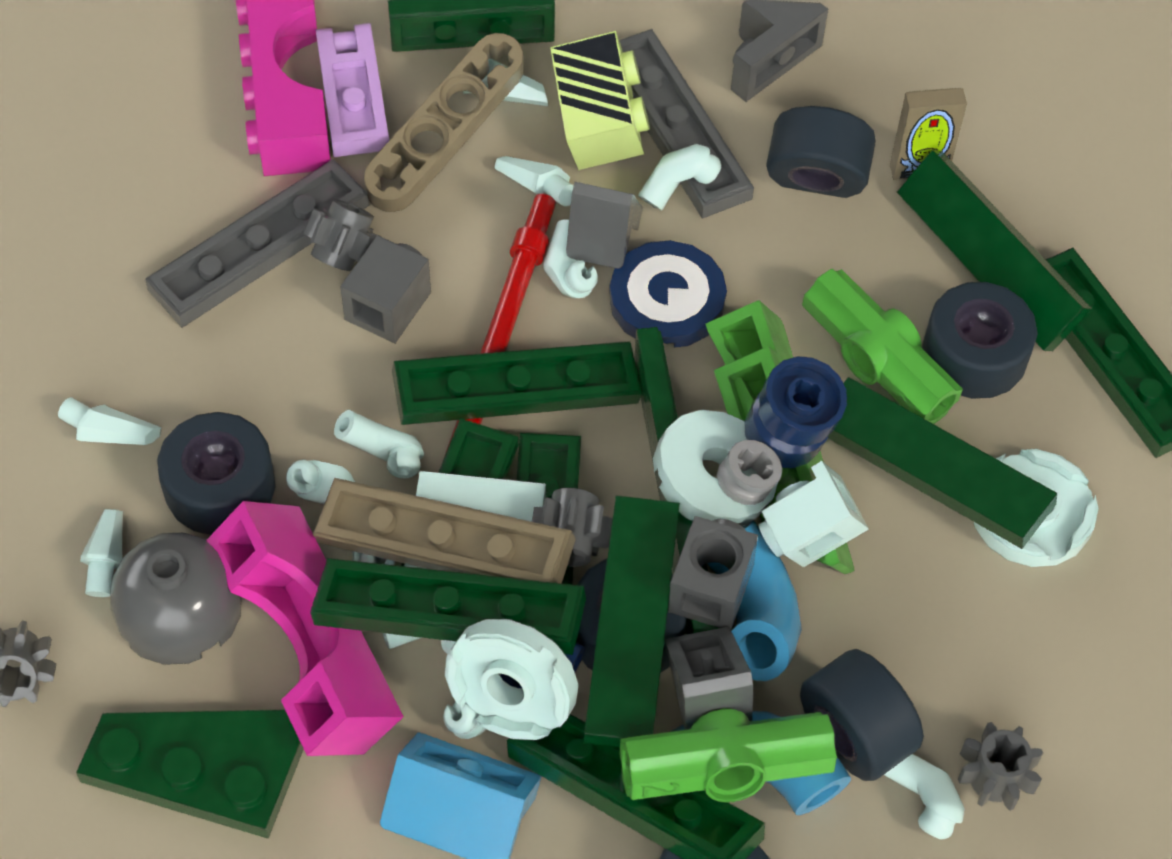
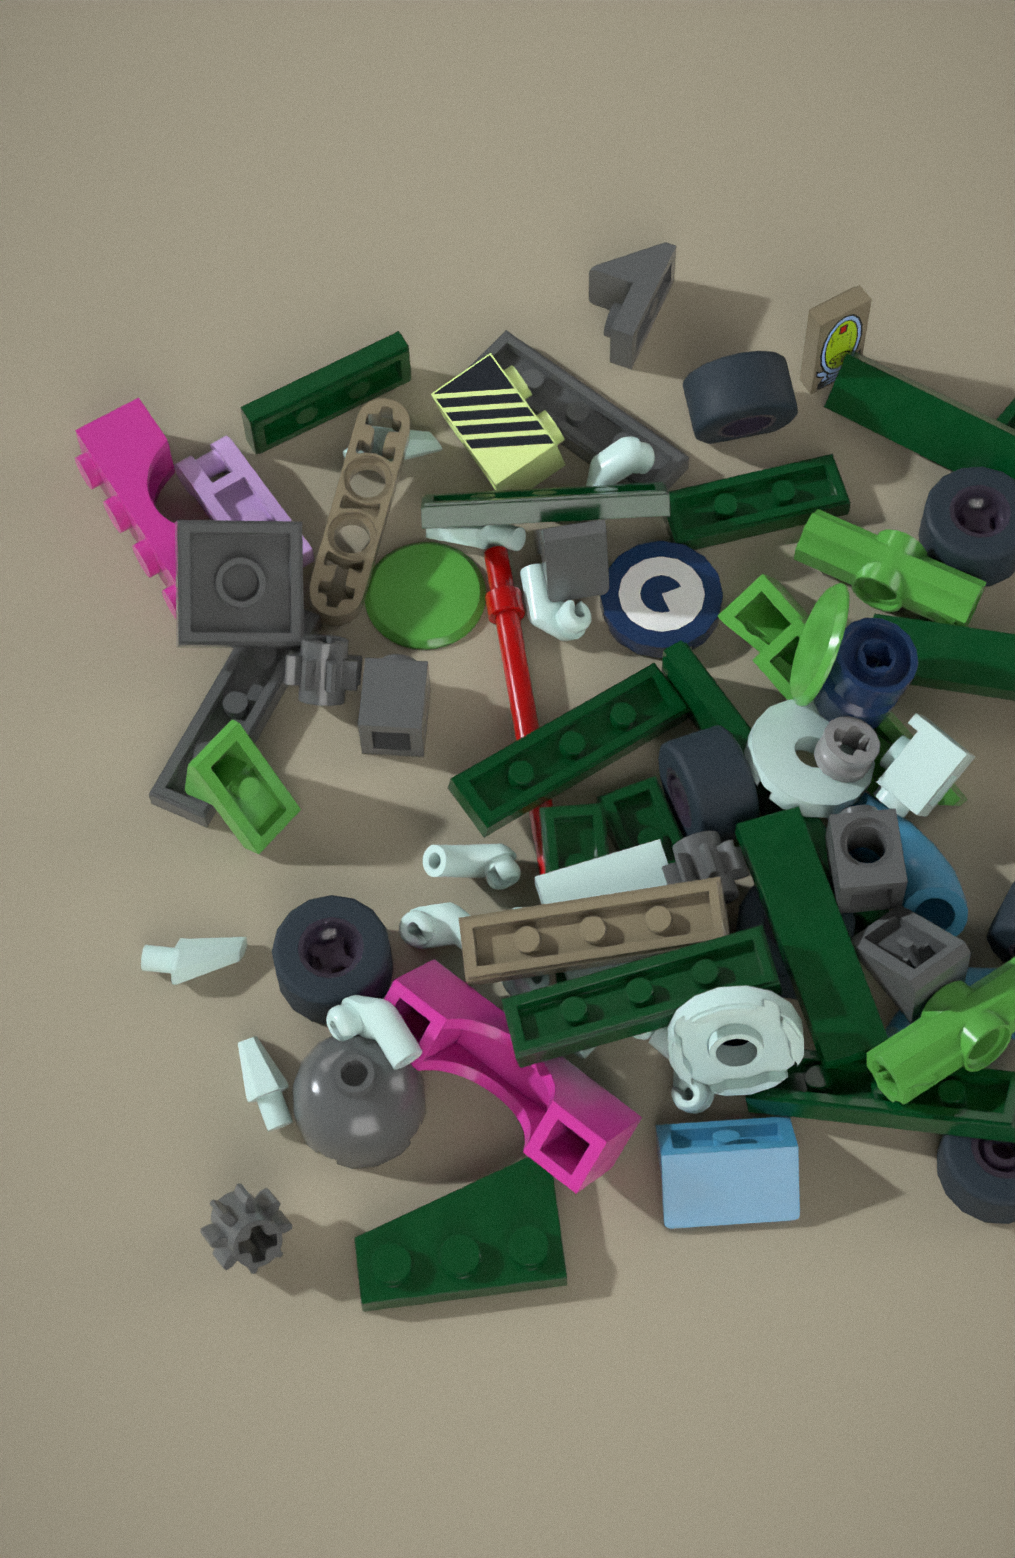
camera: 20 degrees left, 5 degrees up
(212, 532) = (377, 1021): none -> light aqua arm
(216, 298) = (241, 788): none -> bright green slope
(304, 135) = (239, 584): none -> dark grey tile
(469, 215) = (425, 595): none -> bright green piece
(599, 172) = (545, 505): none -> tile
(618, 453) = (708, 782): none -> black wheel
(765, 368) = (819, 644): none -> bright green piece
(792, 246) = (755, 503): none -> dark green tile

